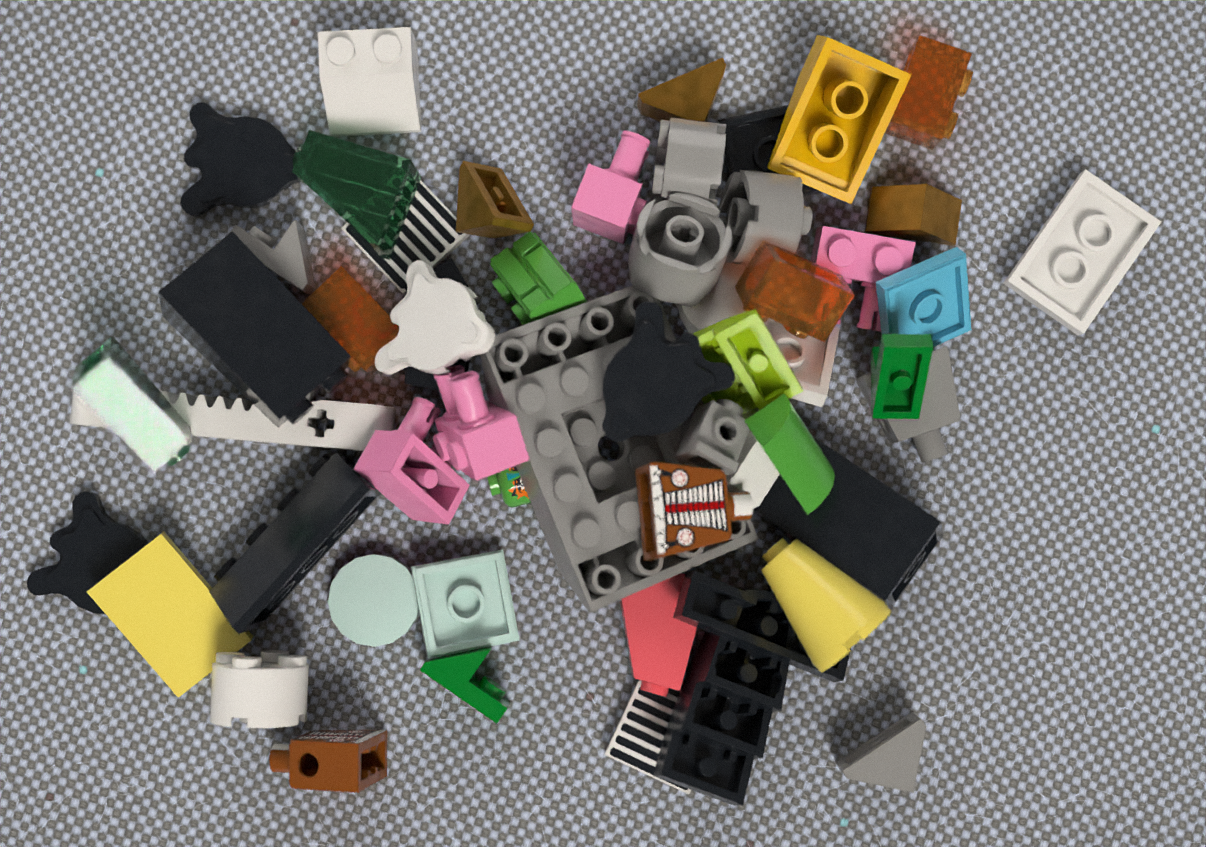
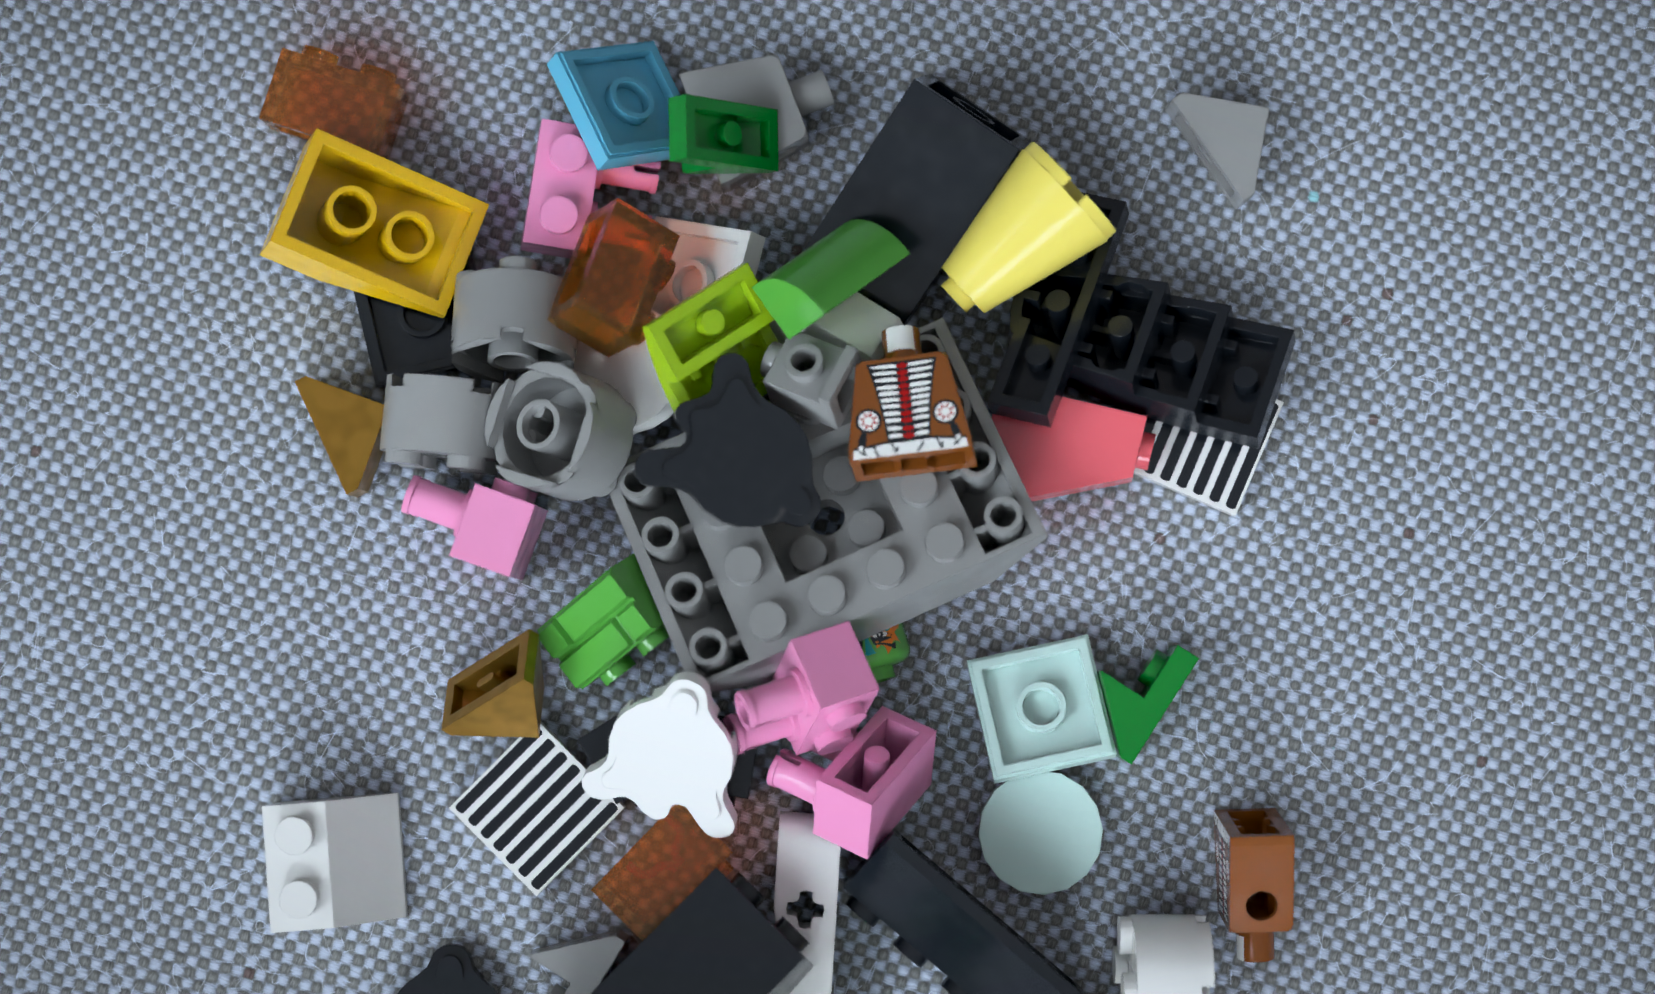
camera: 90 degrees left, 0 degrees up
(359, 186) = (480, 871): clear green slope -> none
(913, 213) = (498, 120): pearl gold slope -> none

